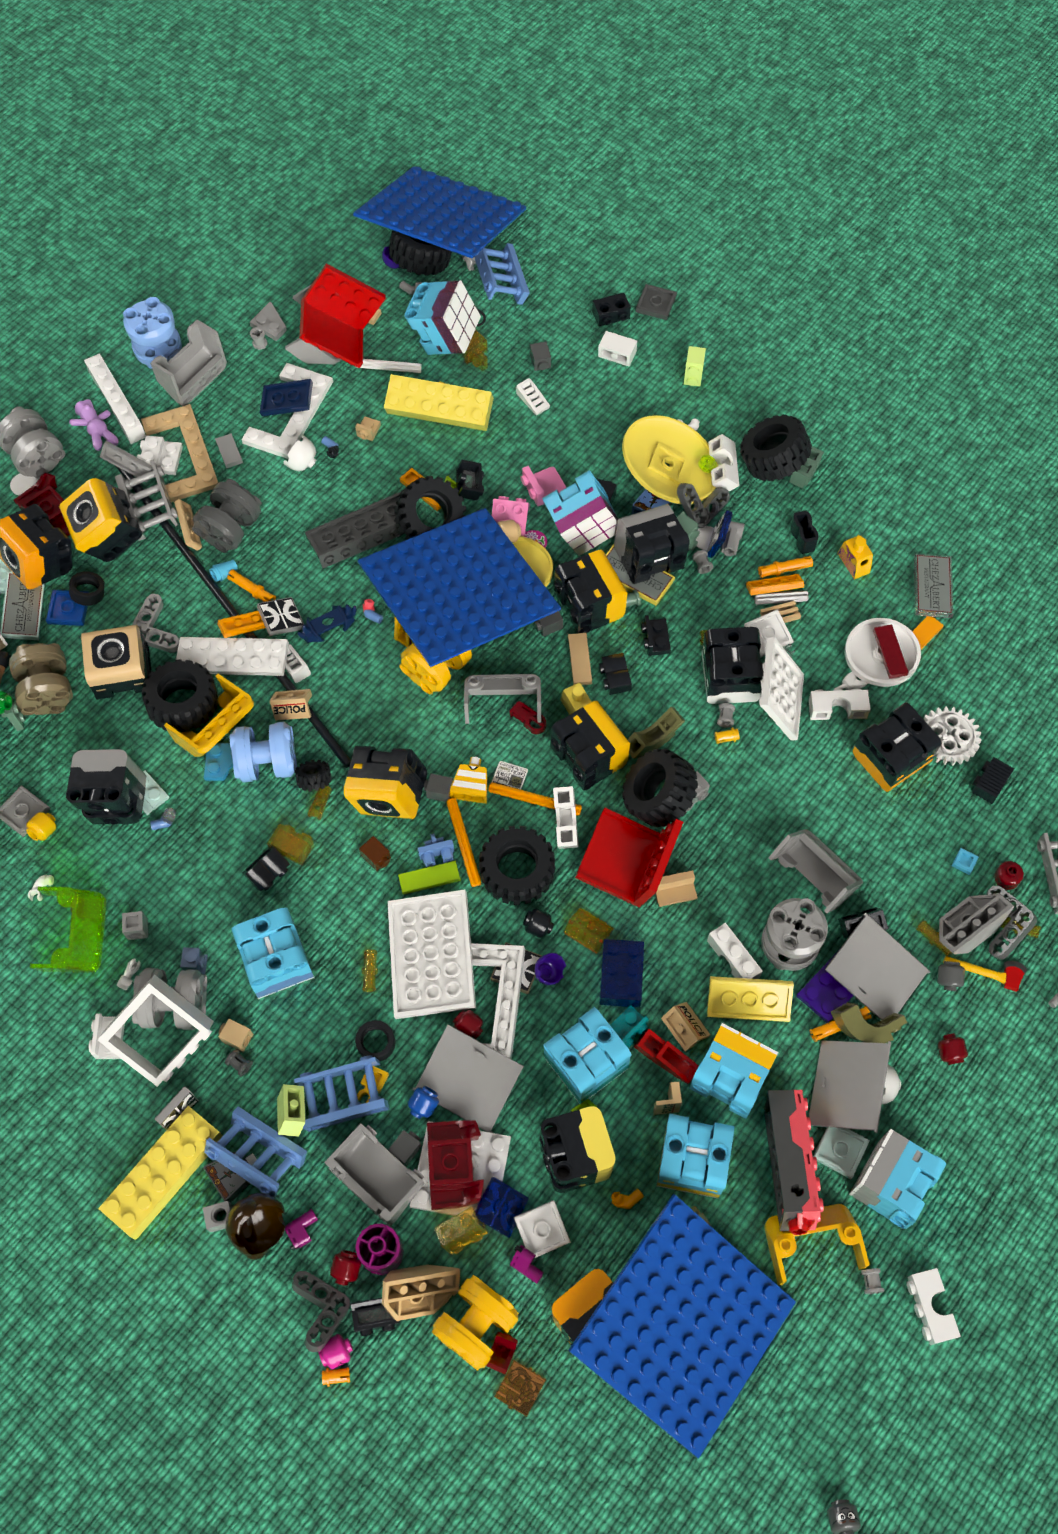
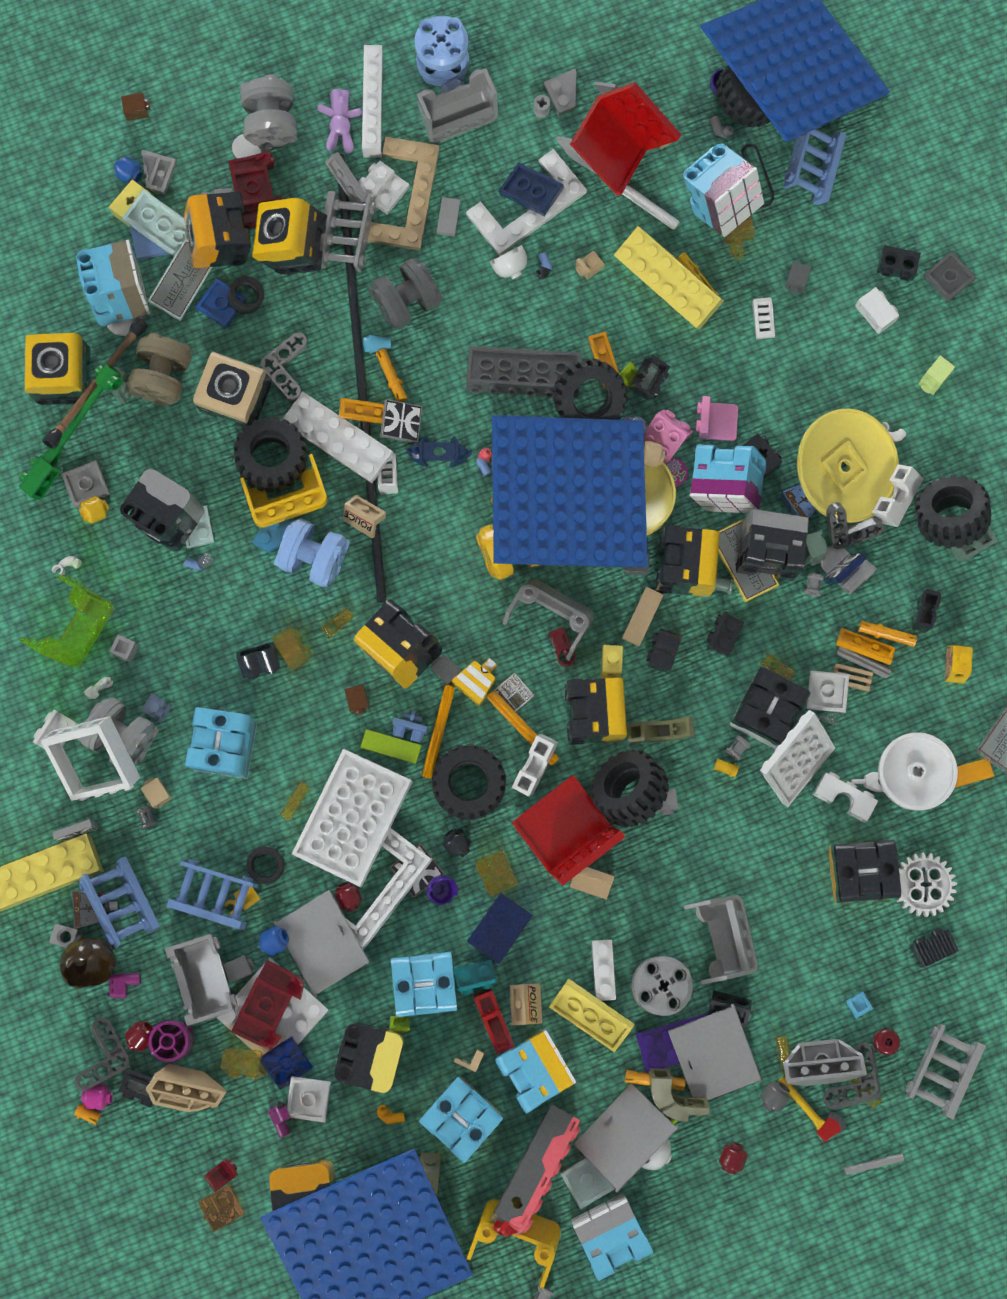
camera: 30 degrees right, 15 degrees up
(185, 517) = (370, 273): tan tile -> none
(291, 1110) = (164, 885): yellowish green brick -> none
(313, 775) = (339, 603): black tyre -> none
(485, 1309) = (198, 1148): yellow piece -> none
(707, 463) = (882, 486): clear neon green tile -> none
(890, 651) = (923, 777): dark red tile -> none

